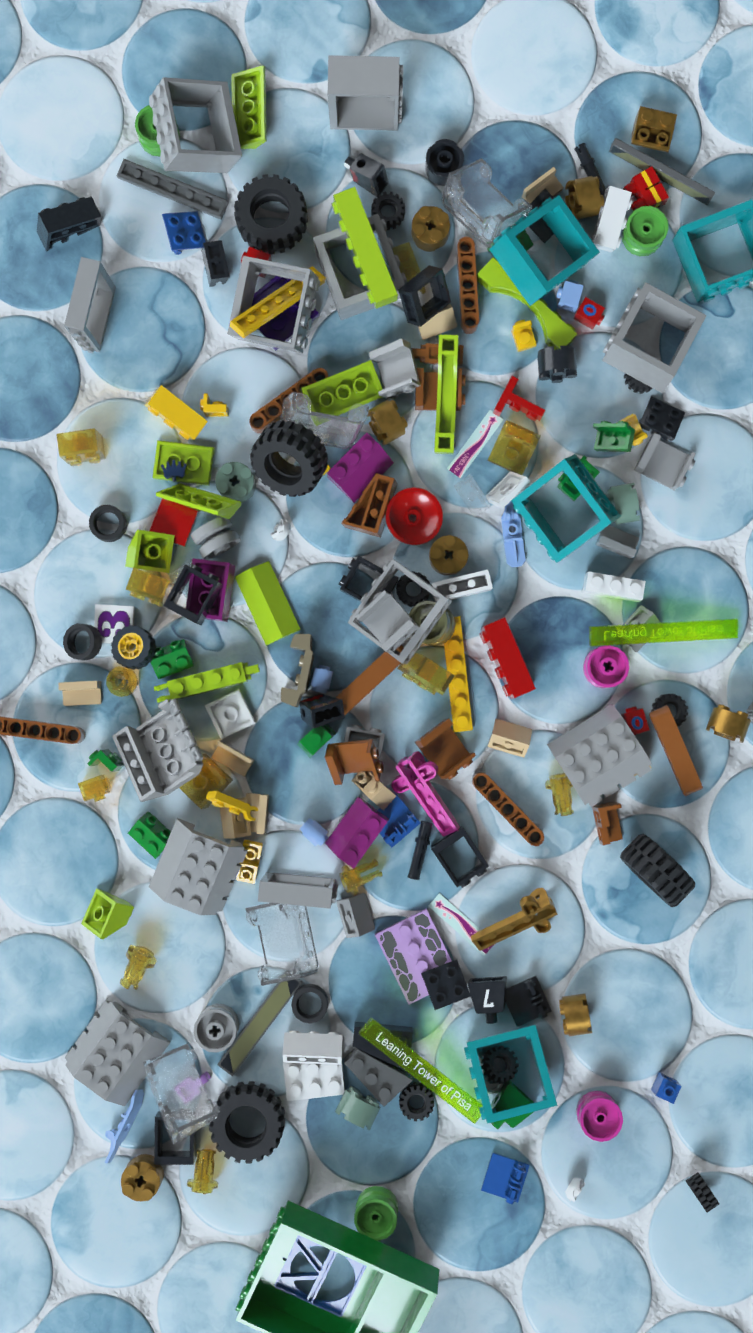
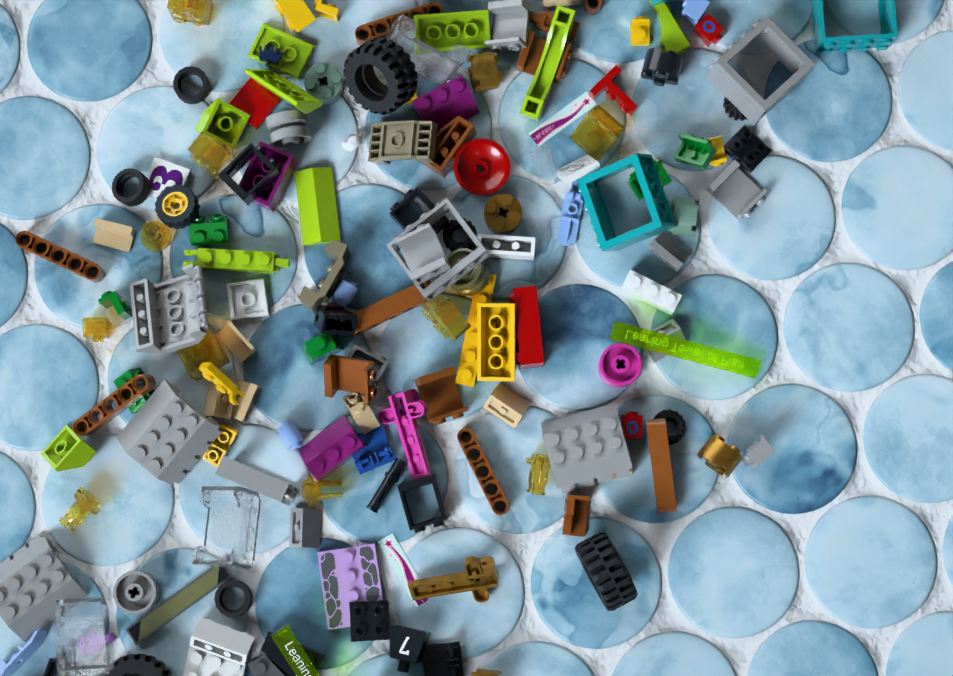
camera: 15 degrees right, 5 degrees down
(142, 851) = (122, 403): none -> dark orange beam
(330, 516) = (402, 141): none -> dark tan plate
(483, 682) = (496, 341): none -> yellow slope

